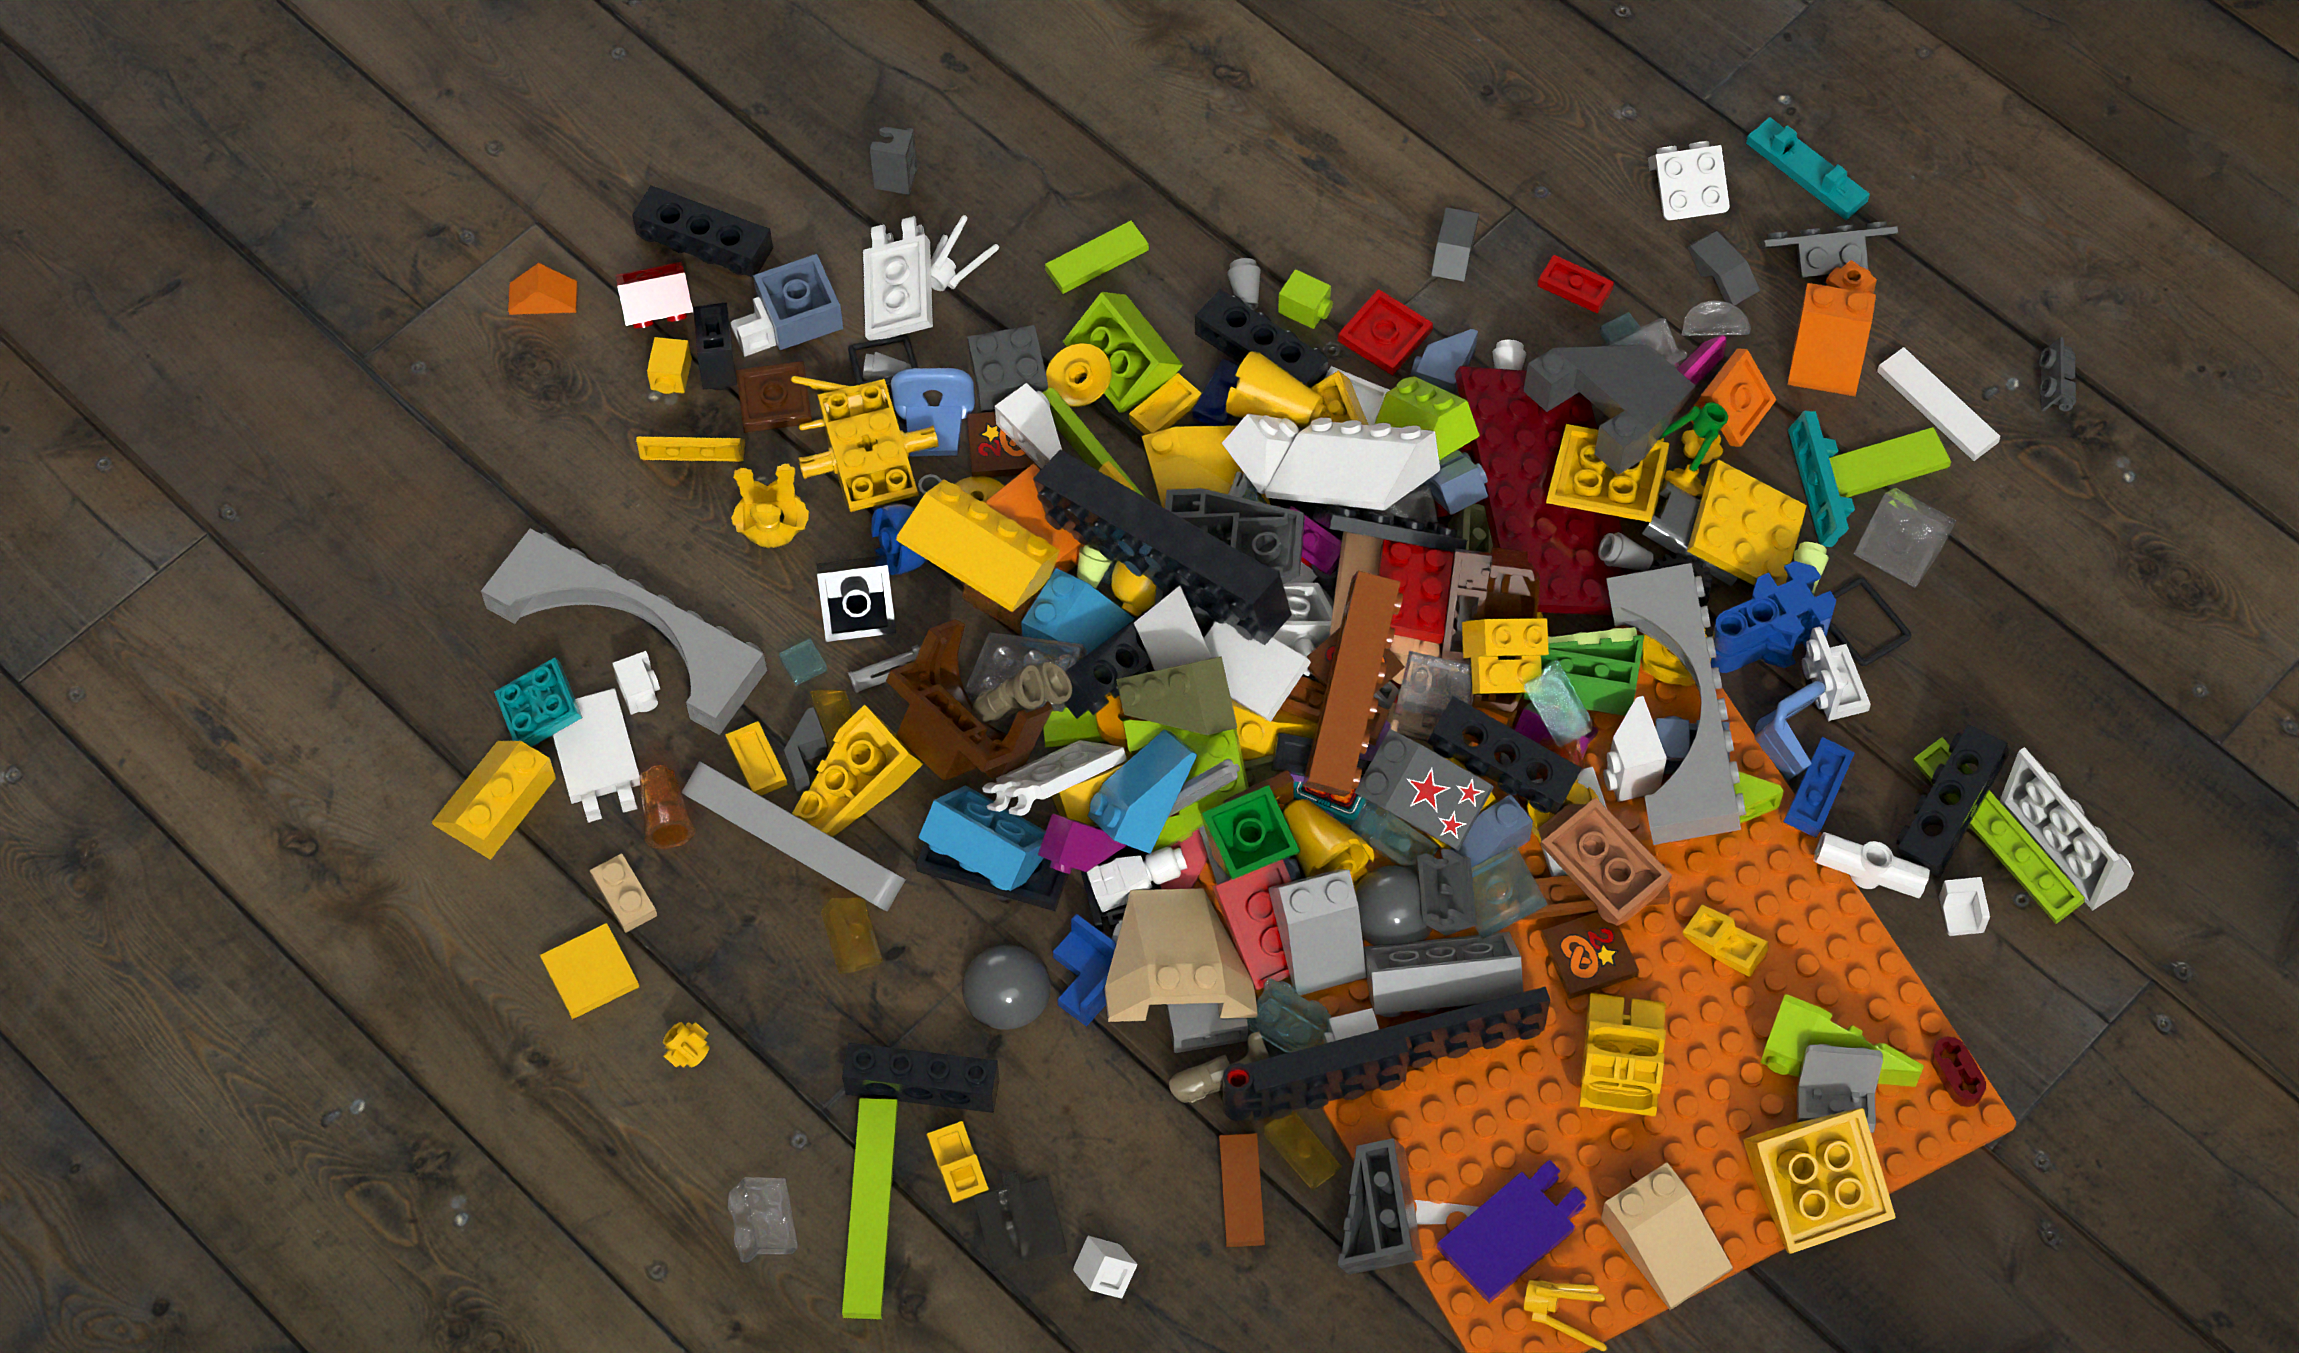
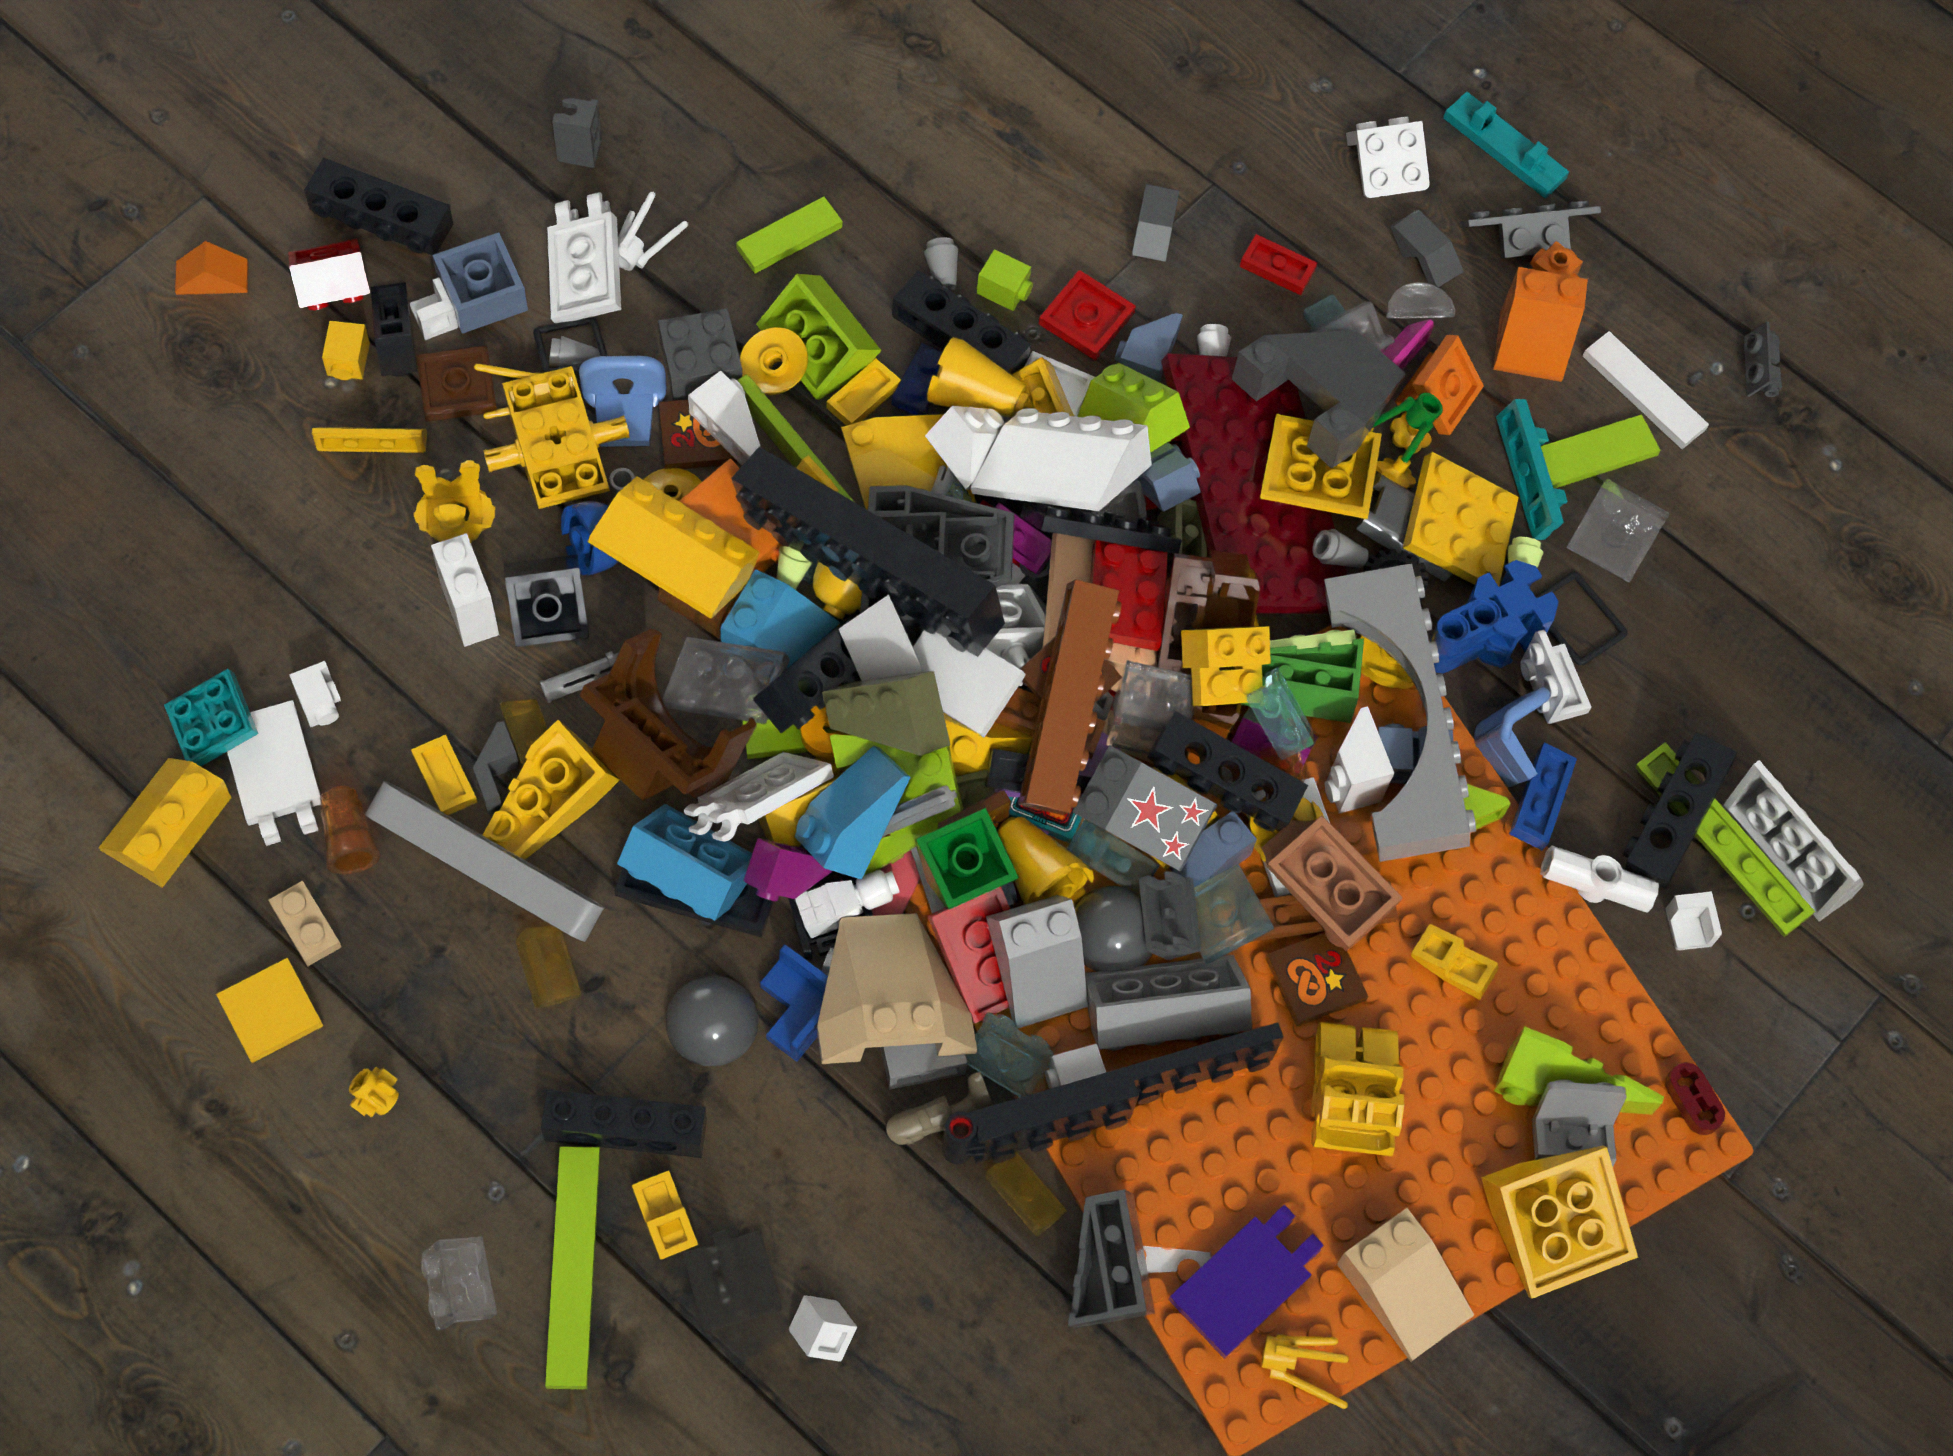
camera: 10 degrees left, 5 degrees up
(548, 575) = (219, 578): light grey arch -> none
(779, 586) = (465, 589): none -> white brick
(803, 662) = (491, 669): clear light blue tile -> none
(1023, 692) = (726, 707): dark tan piece -> none
(1241, 1190) = (963, 1239): dark orange tile -> none

